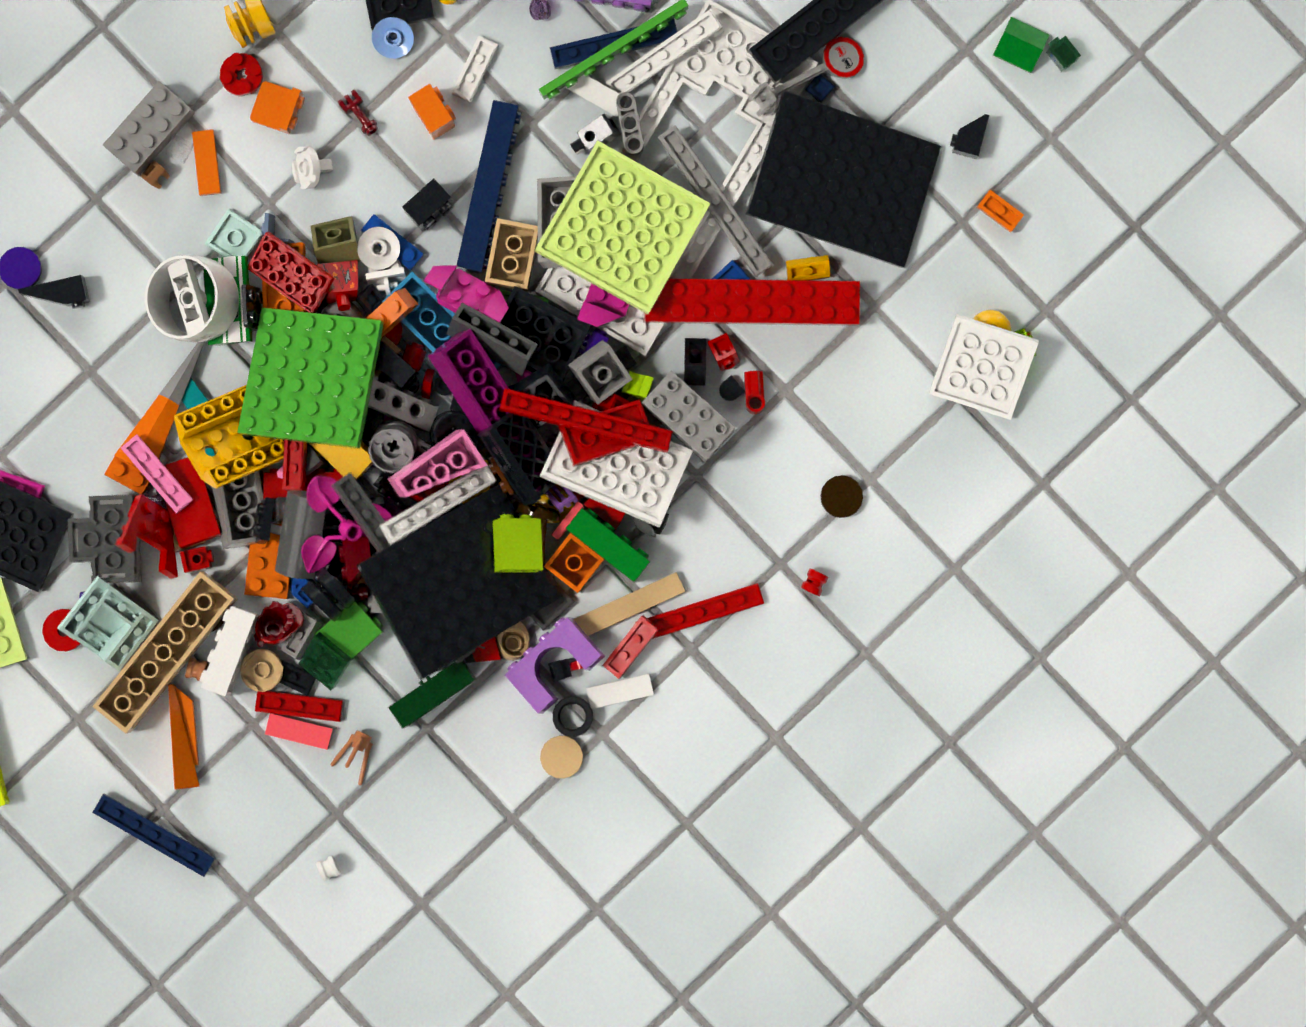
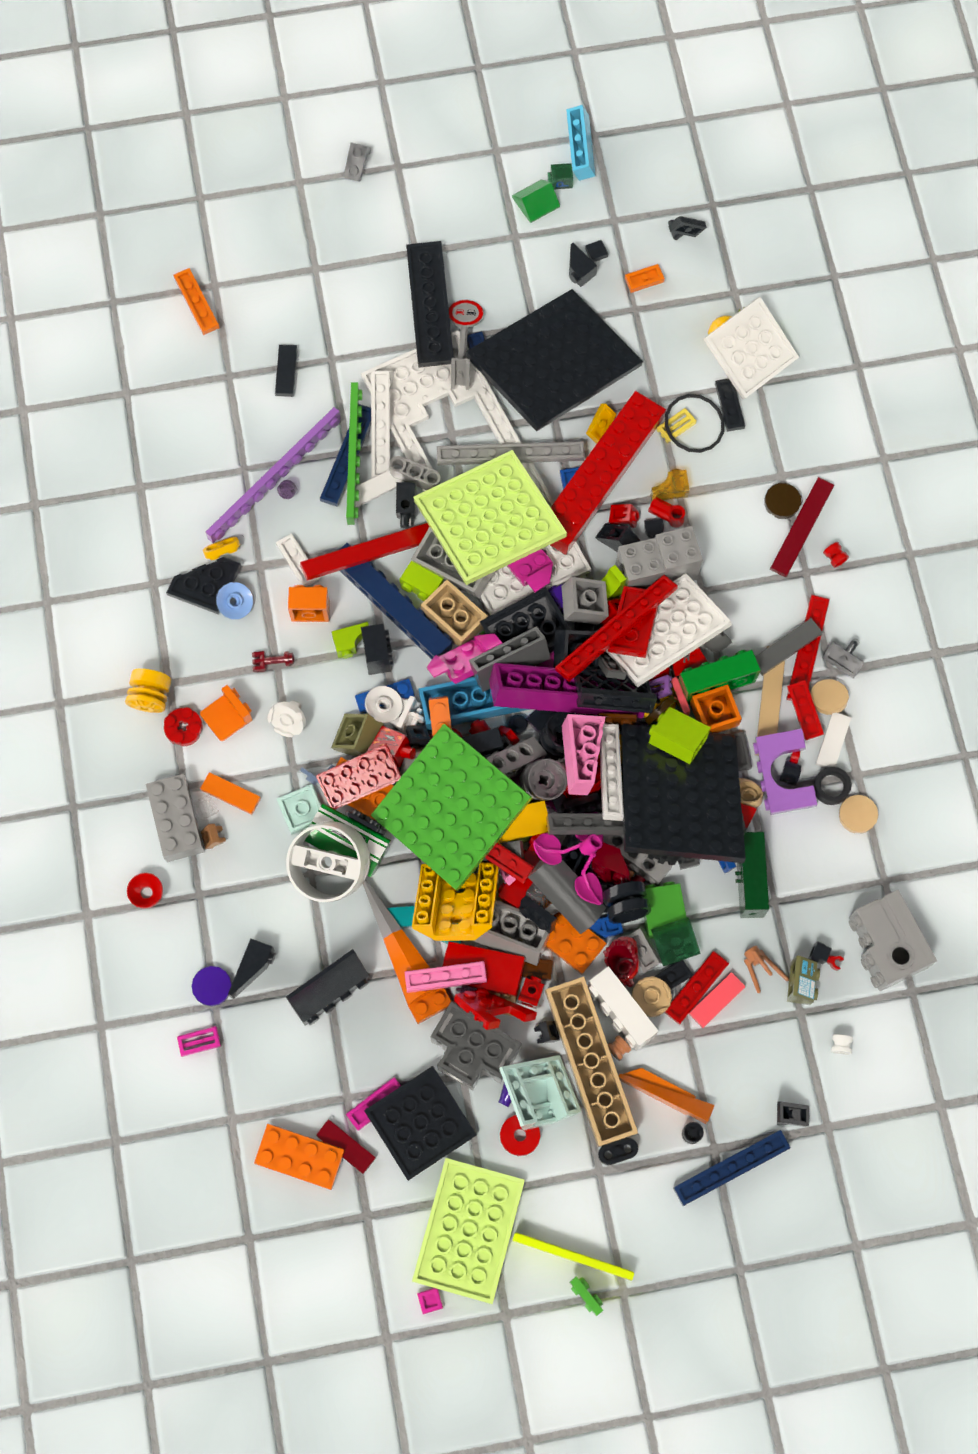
camera: 55 degrees left, 15 degrees down
(56, 141) = (140, 882): none -> red piece
(79, 376) = (328, 988): none -> black slope
(103, 728) = (617, 1151): none -> black plate
(158, 782) = (692, 1133): none -> black wheel
(169, 596) = (548, 1031): none -> black tile
(224, 557) = (542, 970): none -> reddish brown tile
(234, 860) = (792, 1114): none -> black slope
(362, 799) = (803, 981): none -> olive slope
(401, 800) = (821, 954): none -> black piece
(422, 170) = (347, 640): none -> lime arch
(451, 860) = (891, 941): none -> light grey piece
(516, 128) = (363, 552): none -> red tile
(525, 199) = (420, 581): none -> lime brick
(543, 440) = (610, 667): none -> dark grey tile
(661, 661) = (829, 696): none -> tan tile
(685, 591) = (788, 646): none -> dark grey tile
(709, 652) = (843, 658): none -> plate
(785, 381) = (674, 486): none -> clear yellow arch
(825, 532) = (802, 527): none -> dark red tile
(854, 351) = (692, 422): none -> light yellow tile
(870, 325) = (712, 404): none -> black piece
(913, 382) = (729, 405): none -> black tile
(1001, 143) = (596, 251): none -> black tile
(1079, 212) = (685, 226): none -> black plate
(1113, 49) = (580, 142): none -> medium azure brick

